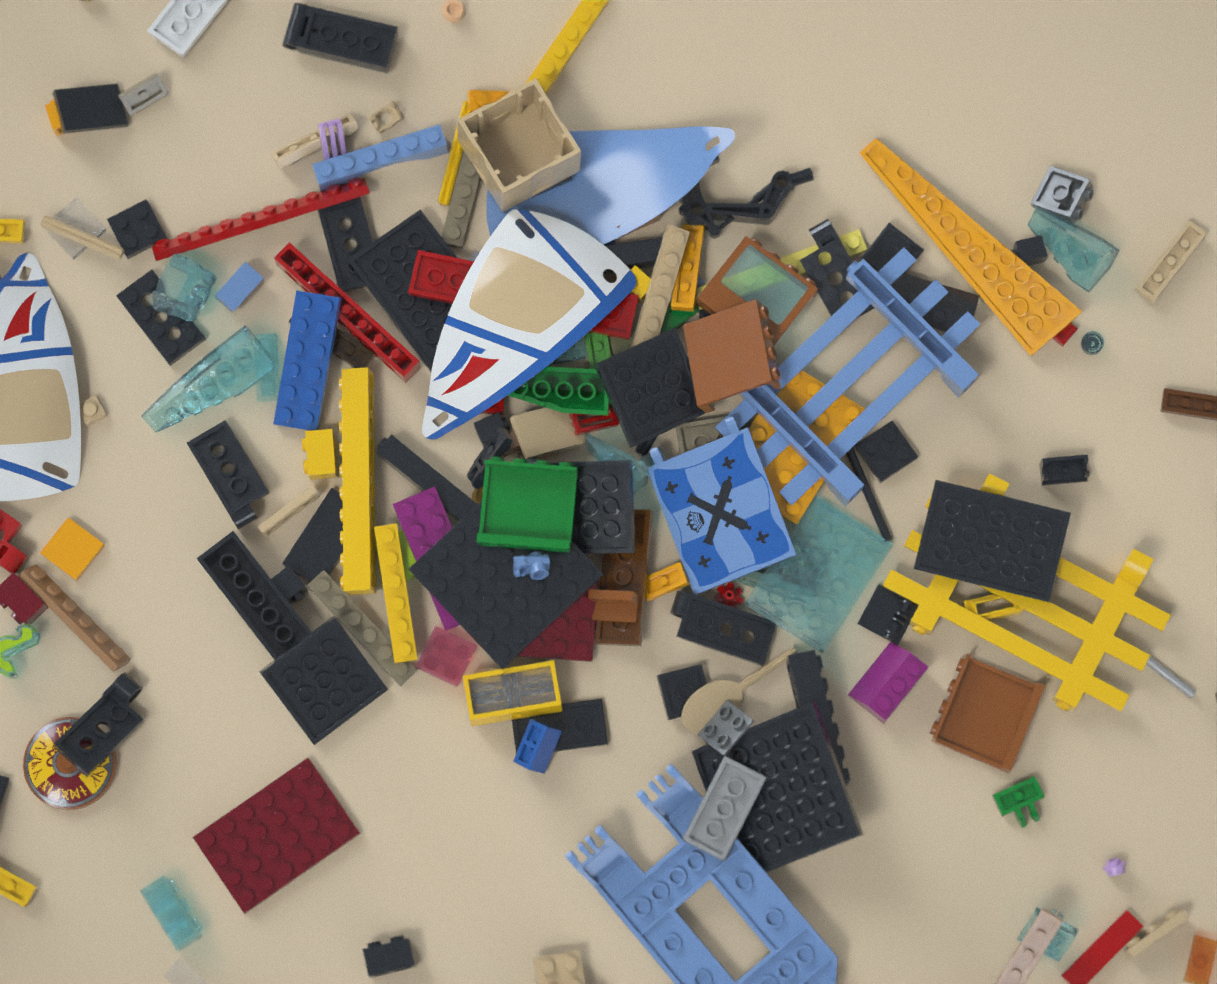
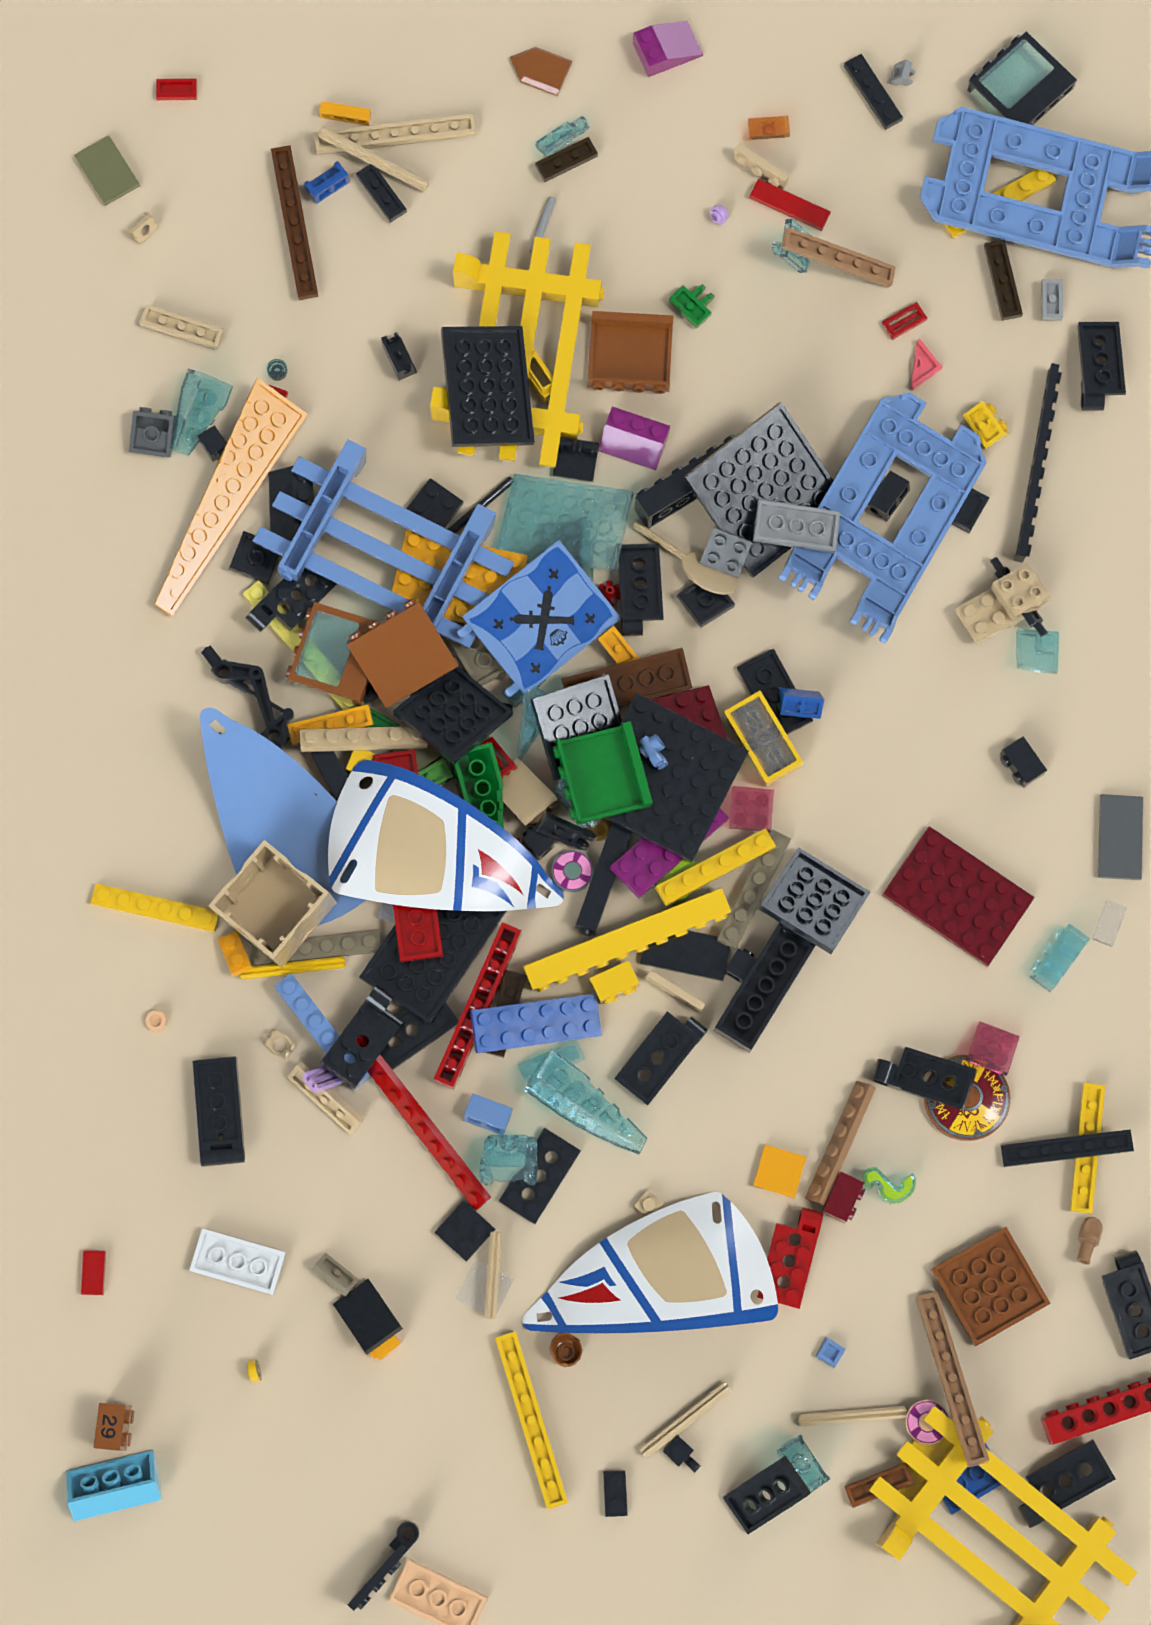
camera: 115 degrees left, 0 degrees up
(107, 807) = (992, 1048): none -> clear pink plate
(365, 207) = (372, 1023): none -> black hinge
(450, 455) = (572, 871): none -> tile
(615, 605) = (657, 678): dark orange panel -> none
(730, 929) = (889, 495): none -> black hinge

